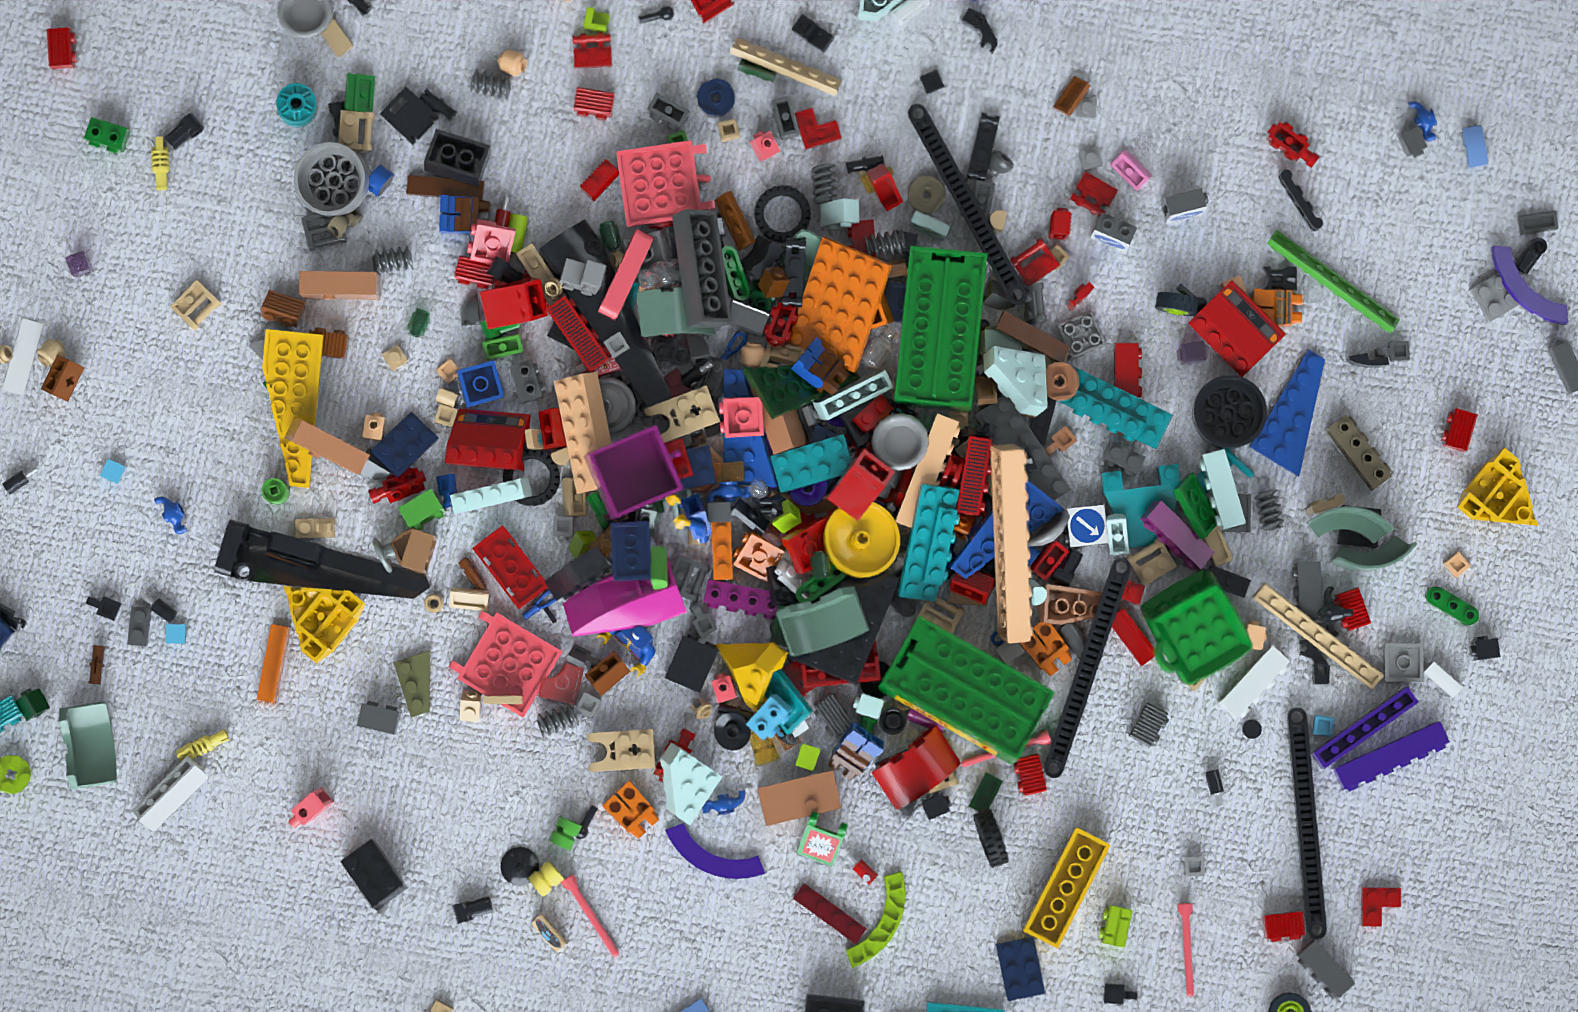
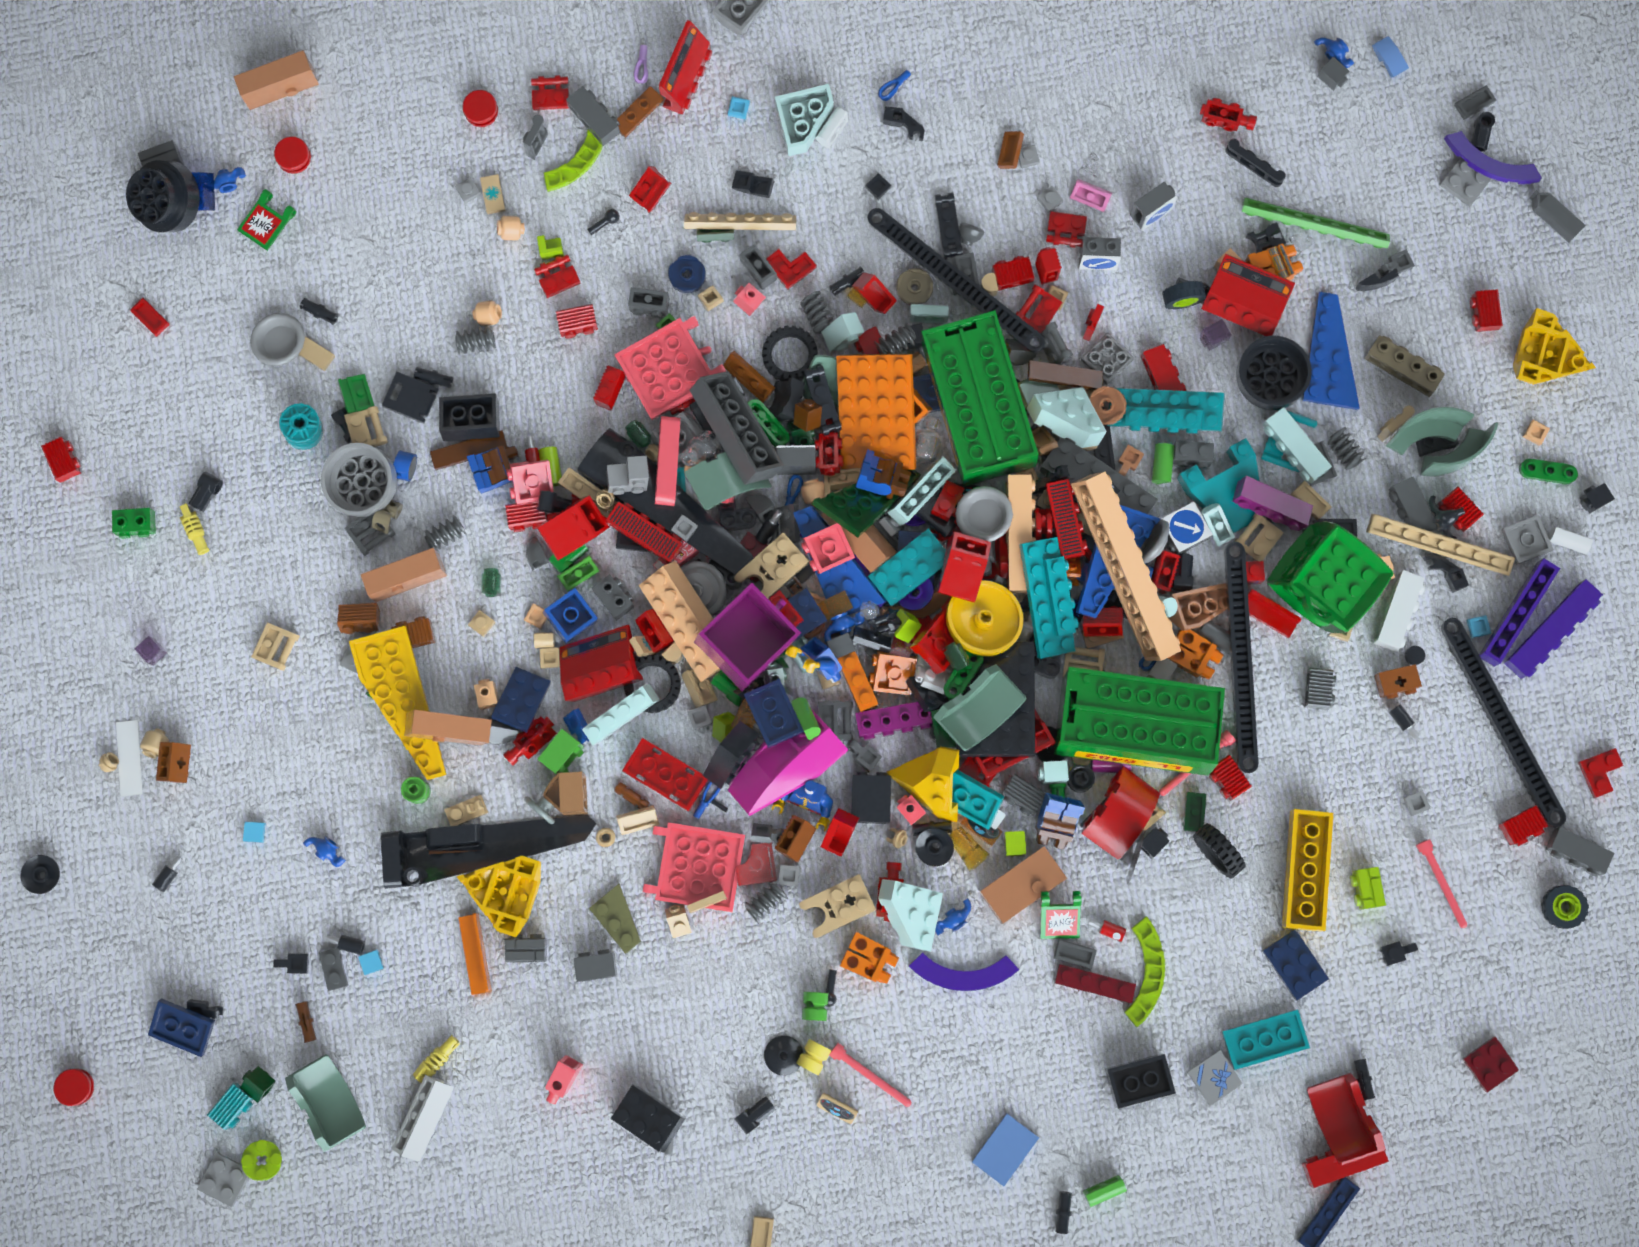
camera: 15 degrees left, 5 degrees down
(321, 677) = (526, 949): none -> dark grey brick
(650, 683) = (839, 832): none -> red panel
(769, 717) = (965, 818): medium azure brick -> none
(822, 879) = (1075, 954): none -> dark grey tile
(1025, 217) = (1013, 272): none -> red brick
(1091, 456) = (1162, 463): none -> bright green brick
(1195, 505) = (1278, 469): green plate -> none
(1235, 744) = (1407, 675): none -> dark orange brick

